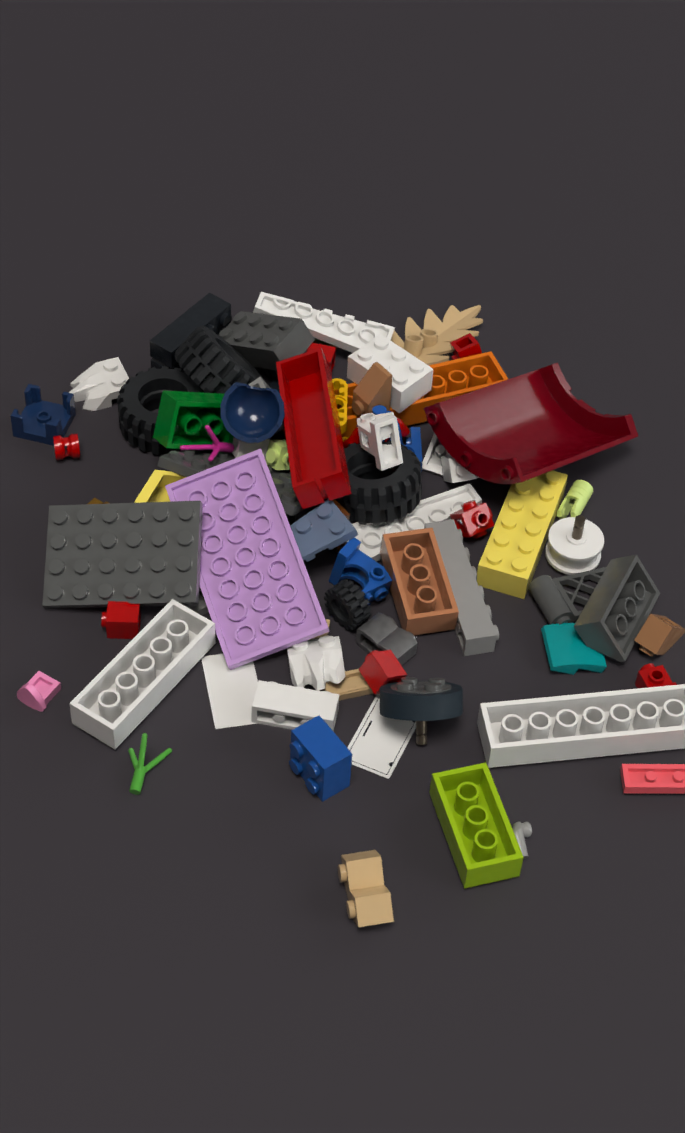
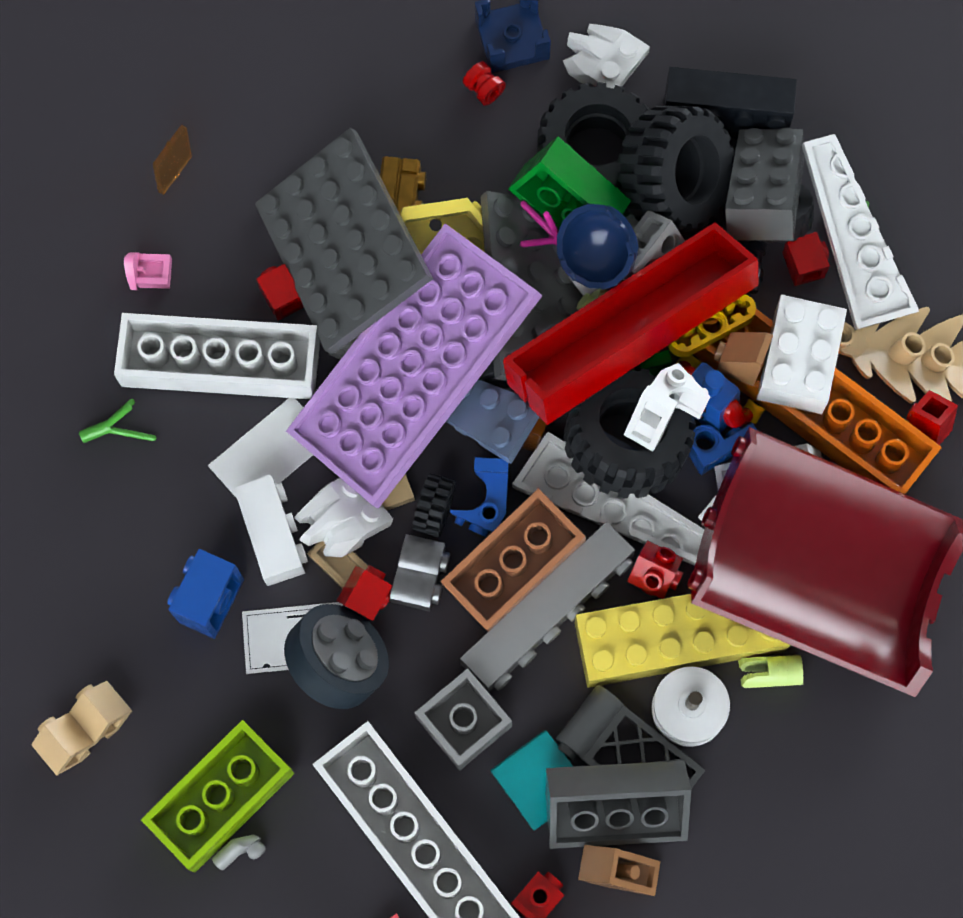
camera: 65 degrees right, 25 degrees up
(509, 661) = (463, 719): none -> light grey brick

